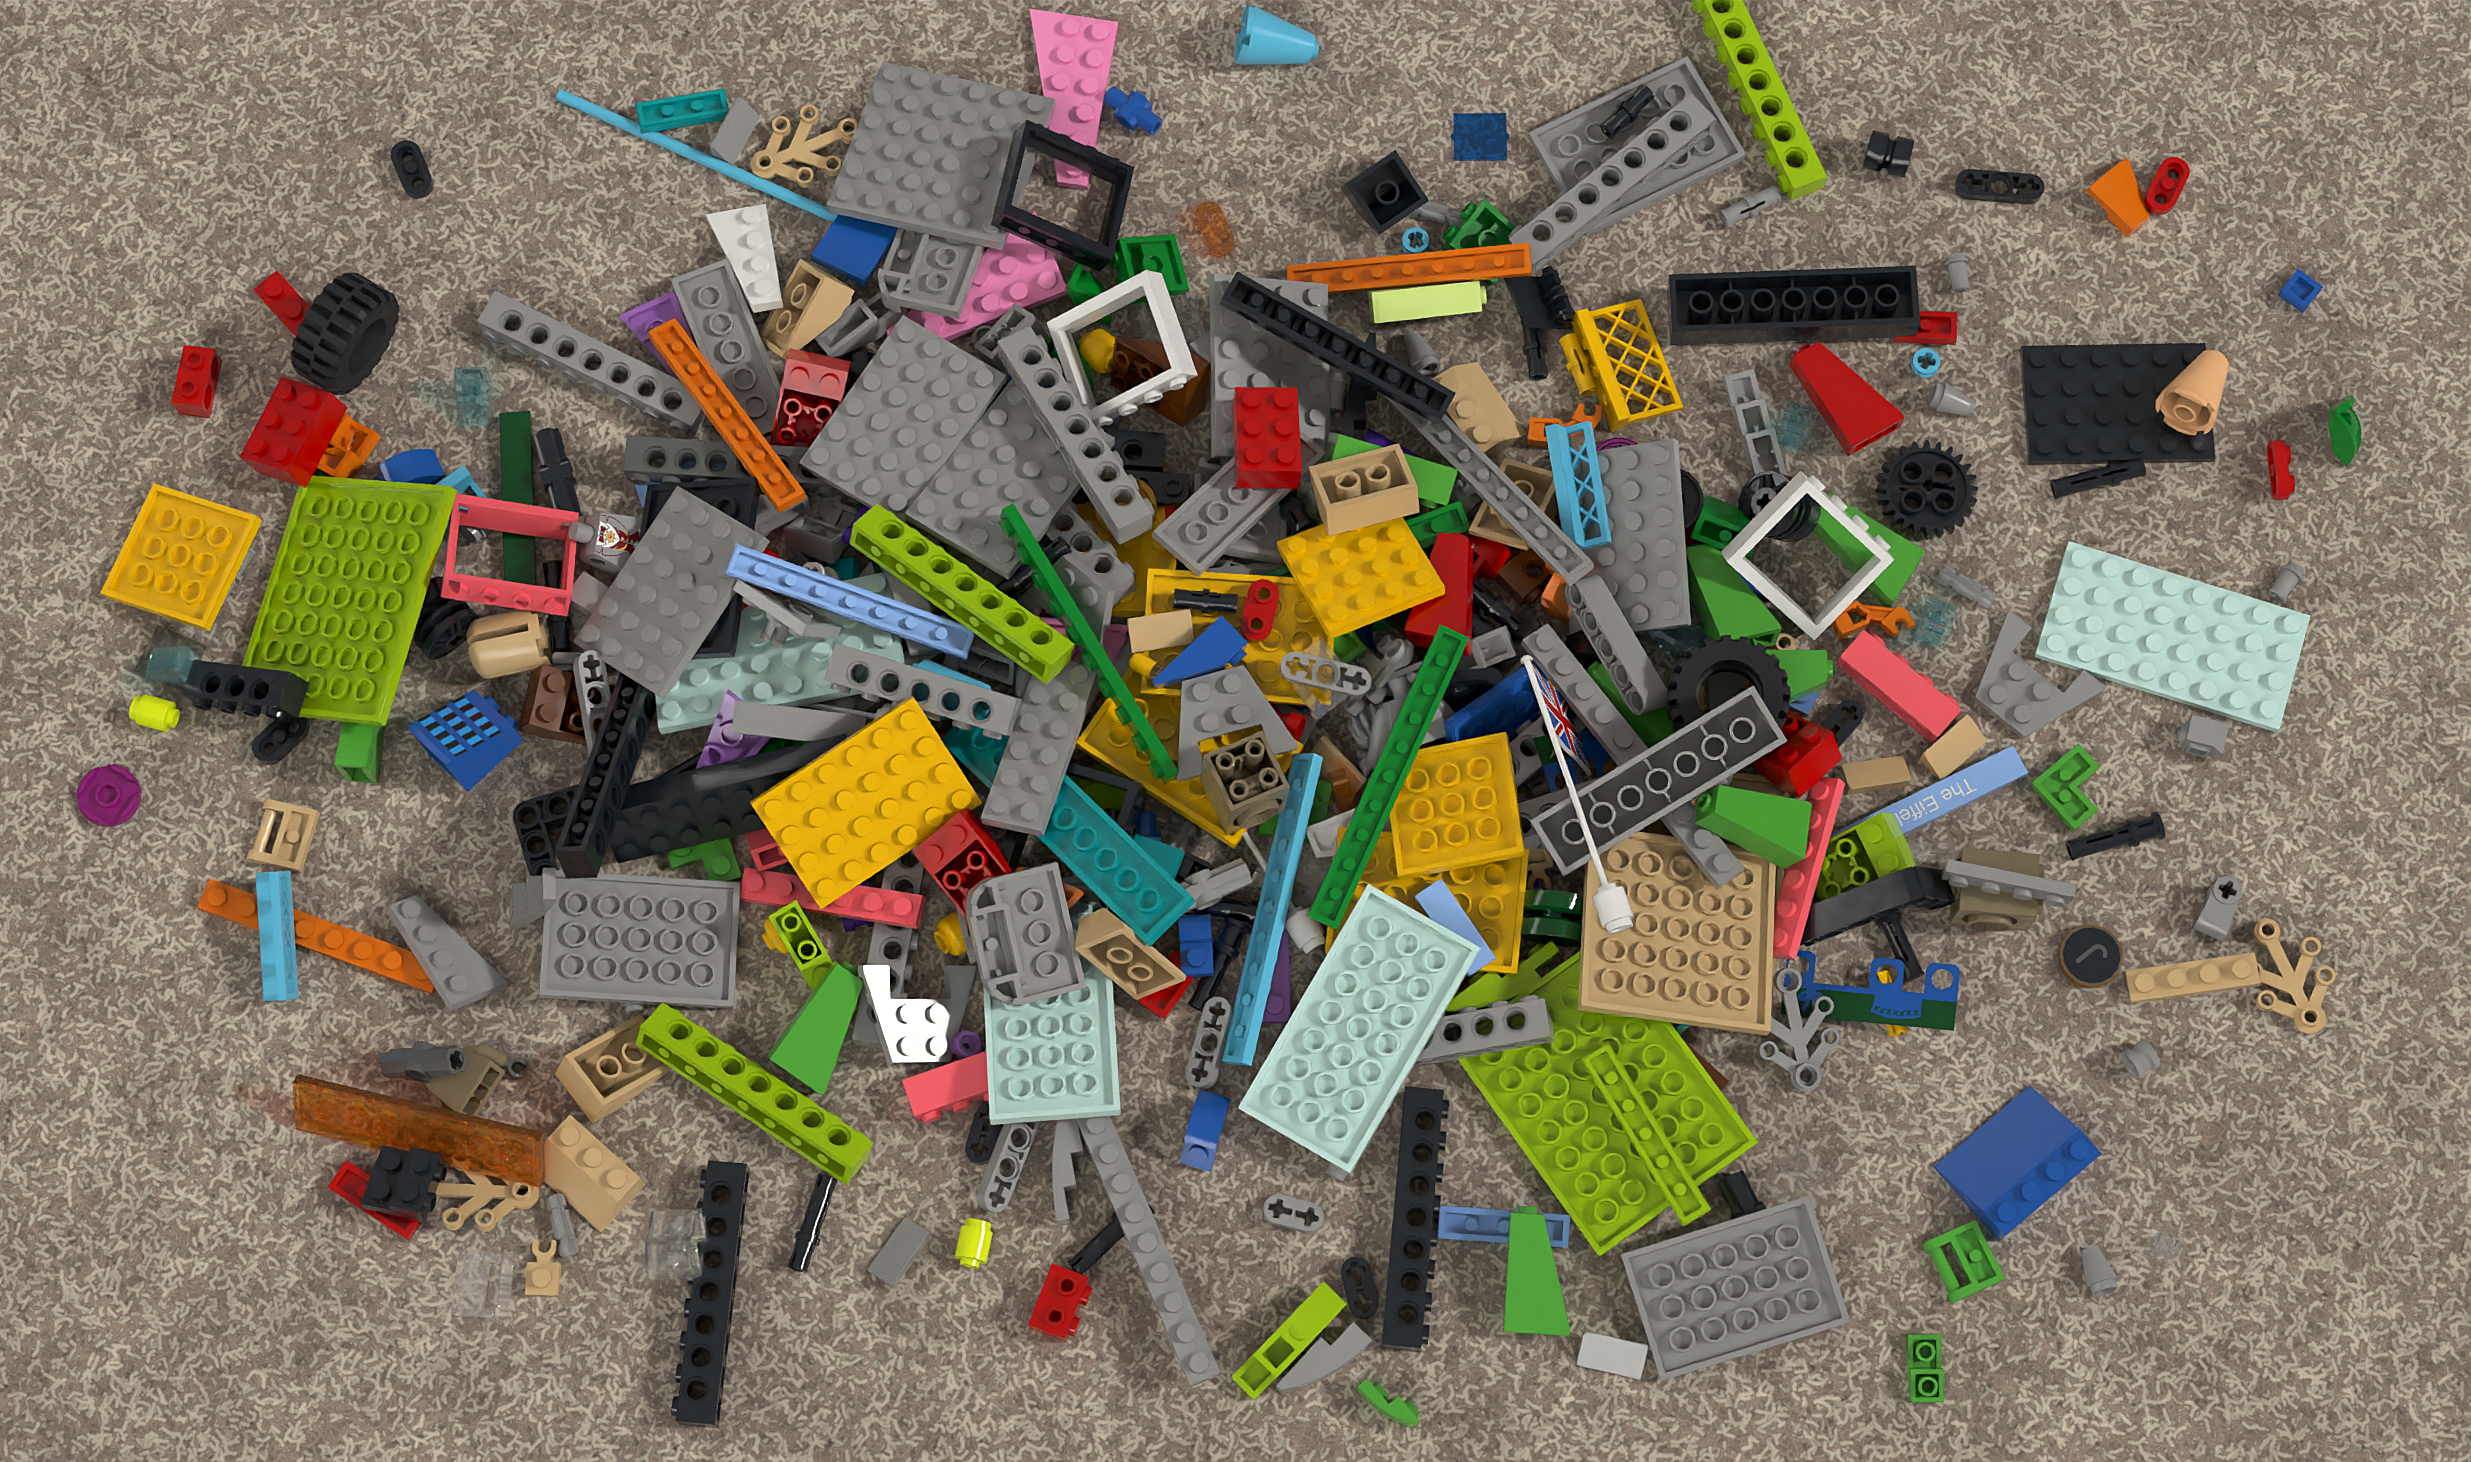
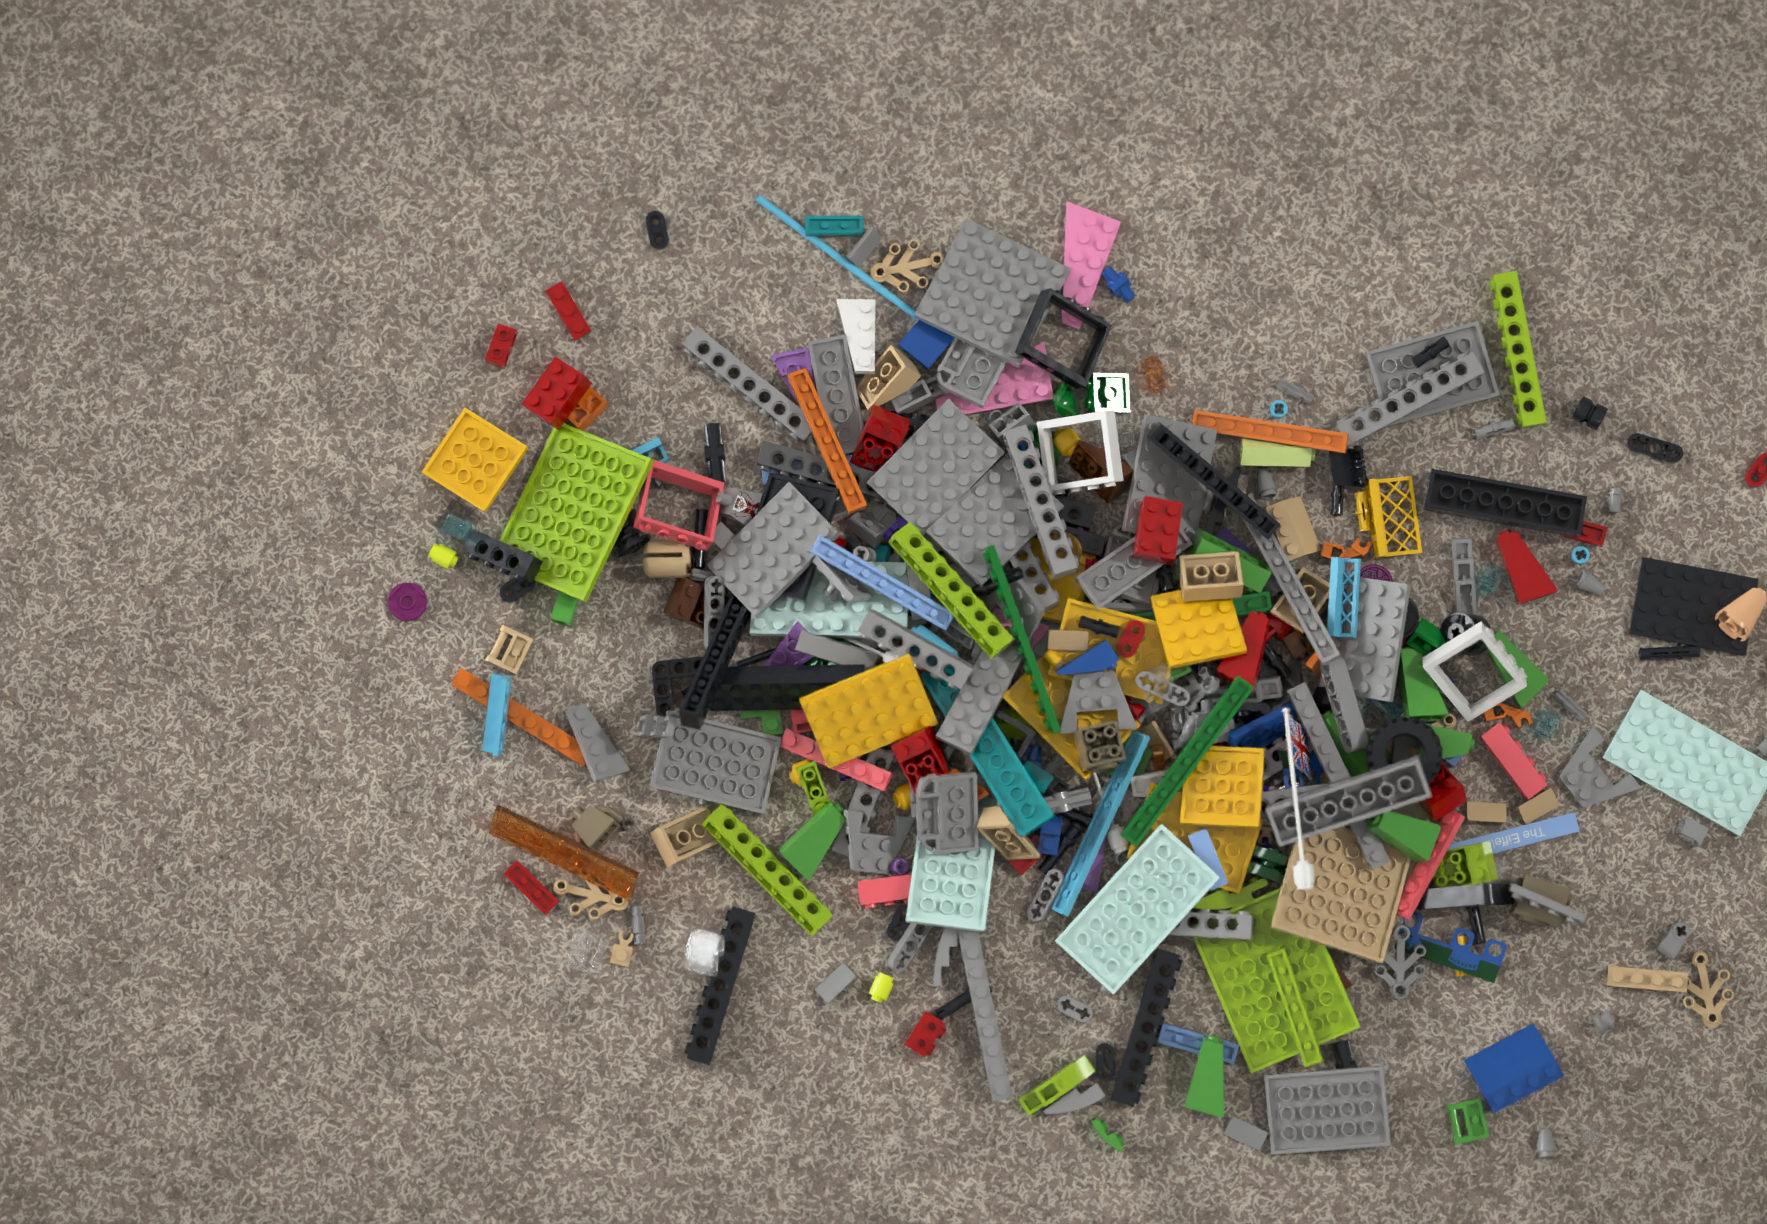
camera: 10 degrees right, 10 degrees up
(344, 333) = (600, 339): black tyre -> none
(405, 1183) = (550, 882): black plate -> none
(412, 466) = (624, 434): blue brick -> none
(422, 1061) = (573, 811): dark grey piece -> none
(467, 737) = (633, 613): blue slope -> none
(474, 395) = (671, 392): clear light blue slope -> none
(517, 487) = (688, 461): dark green tile -> none
(588, 1174) = (659, 898): tan slope -> none
(810, 1229) = (787, 955): black pin -> none
(1204, 1130) = (1032, 948): blue brick -> none
(1272, 40) = (1216, 257): medium azure cone -> none
(1385, 193) = (1266, 374): black slope -> none
(1480, 136) = (1334, 346): clear blue piece -> none
(1480, 227) = (1319, 413): green plate -> none
(1849, 727) = (1473, 781): black beam -> none
(1924, 1367) = (1429, 1178): bright green slope -> none
(1925, 463) = (1564, 621): black gear -> none
(2060, 787) = (1597, 842): bright green plate -> none
(2090, 956) = (1589, 952): black tile -> none
(2121, 198) = (1730, 471): orange slope -> none
(2129, 833) = (1632, 881): black pin -> none

